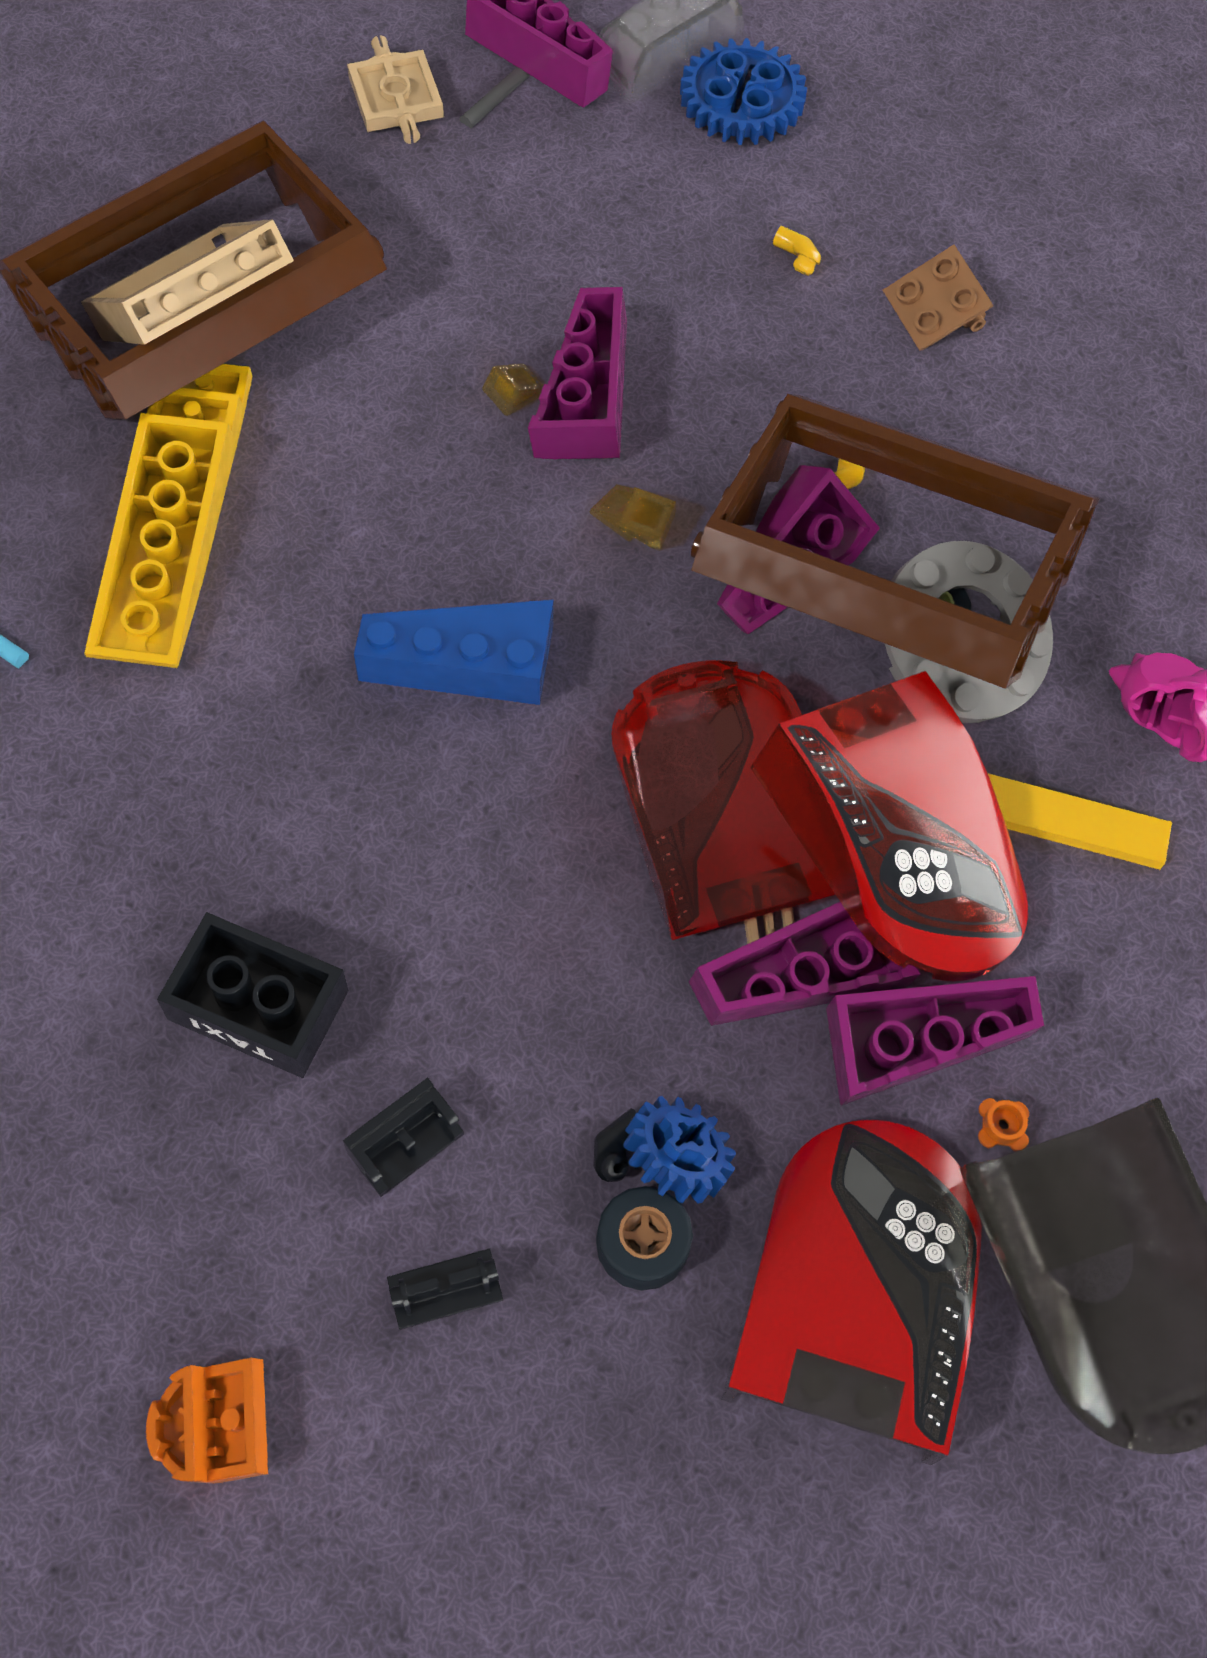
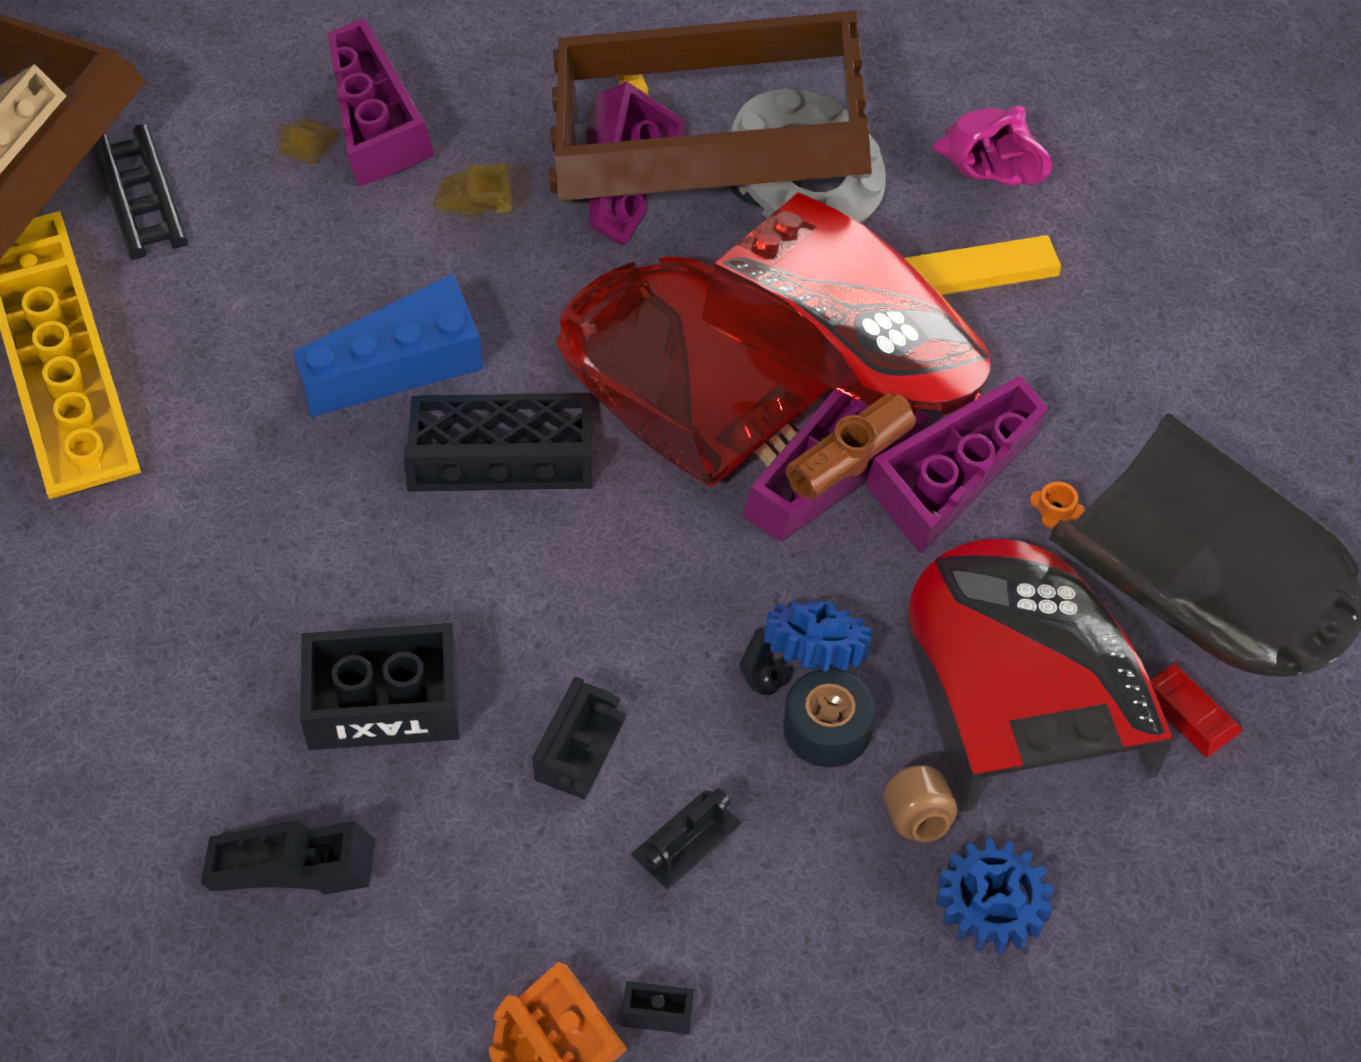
camera: 25 degrees left, 10 degrees down
(88, 1123) = (290, 857): none -> black slope
(319, 1446) = (657, 1007): none -> black piece
(348, 394) = (127, 209): none -> black bar
(493, 814) = (501, 461): none -> black fence
(676, 1374) = (920, 803): none -> medium nougat head
(701, 1534) = (1005, 915): none -> blue gear
(784, 982) = (834, 458): none -> dark orange piece
(1006, 1412) = (1193, 711): none -> red tile

